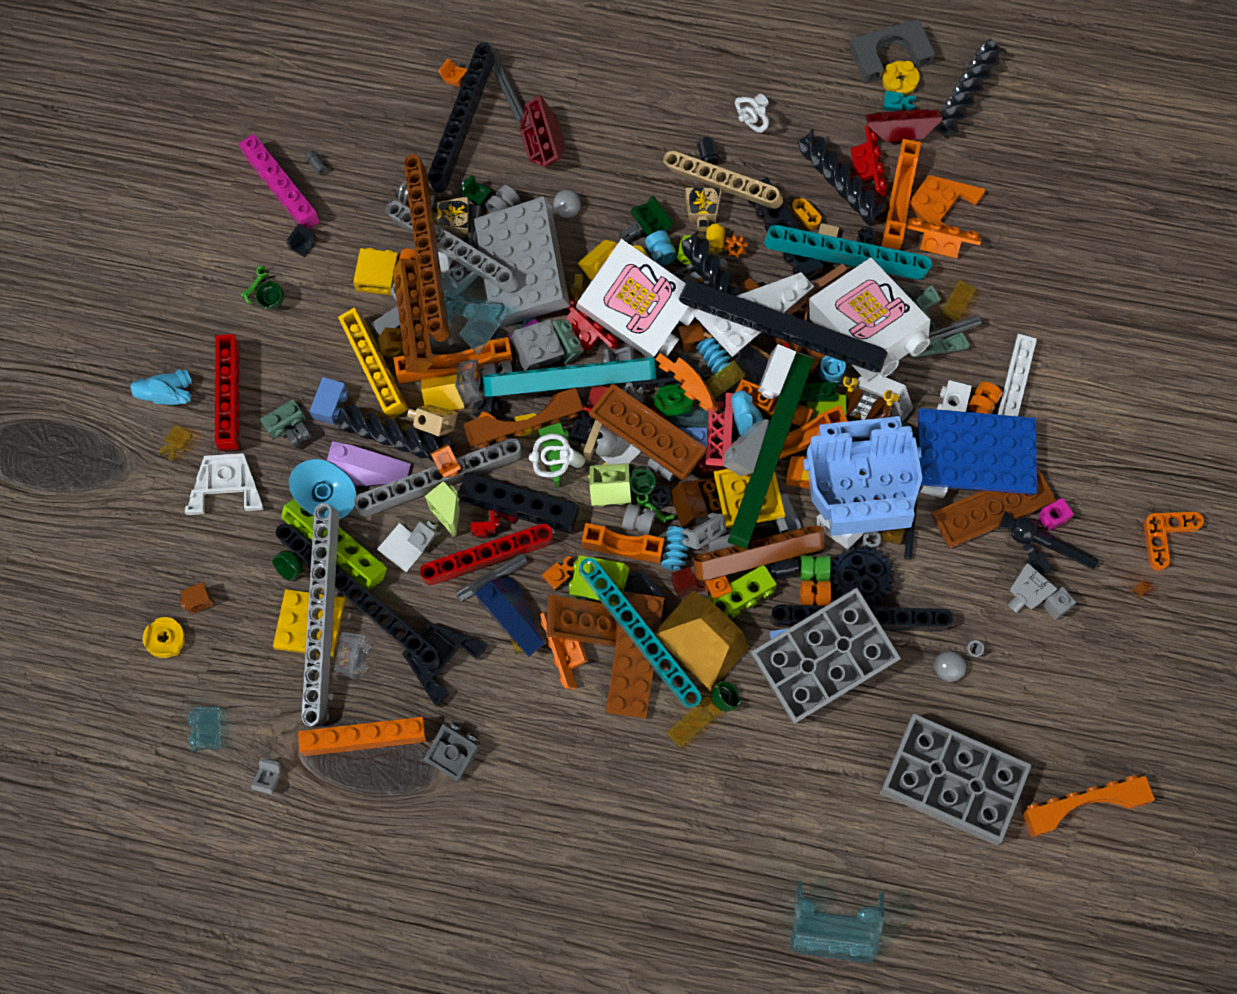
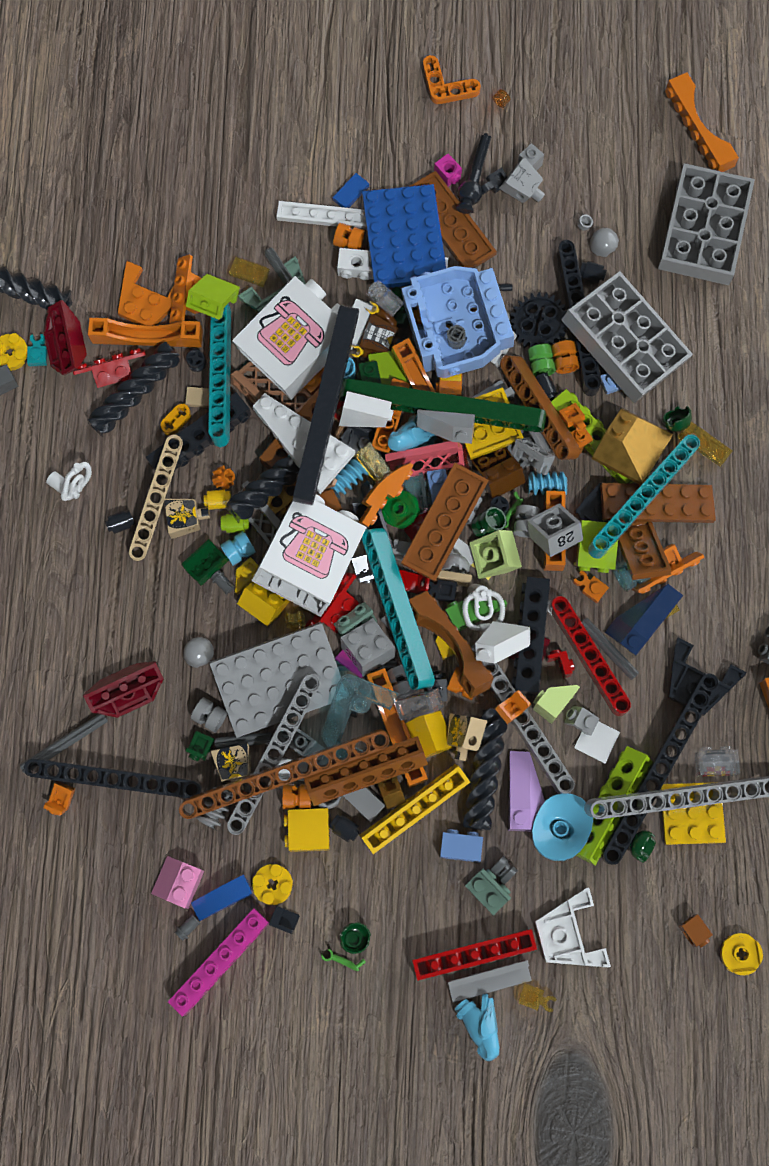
camera: 100 degrees left, 5 degrees up
(202, 405) = (489, 981): none -> light grey fence
(334, 194) = (222, 898): none -> blue slope
(345, 241) = (271, 896): none -> yellow plate
(356, 160) = (177, 882): none -> bright pink slope
(371, 303) = (344, 828): none -> black brick
(512, 460) = (501, 641): none -> white slope
(617, 533) = (555, 530): none -> light grey brick
(683, 582) = (580, 470): clear red brick -> none
(741, 579) = (574, 416): none -> orange plate
(843, 476) = (456, 341): none -> dark grey wheel
(905, 408) = (384, 298): none -> clear brick
(913, 644) = (592, 272): none -> black brick
(931, 255) = (211, 296): none -> lime panel
(1044, 414) = (351, 191): none -> blue tile

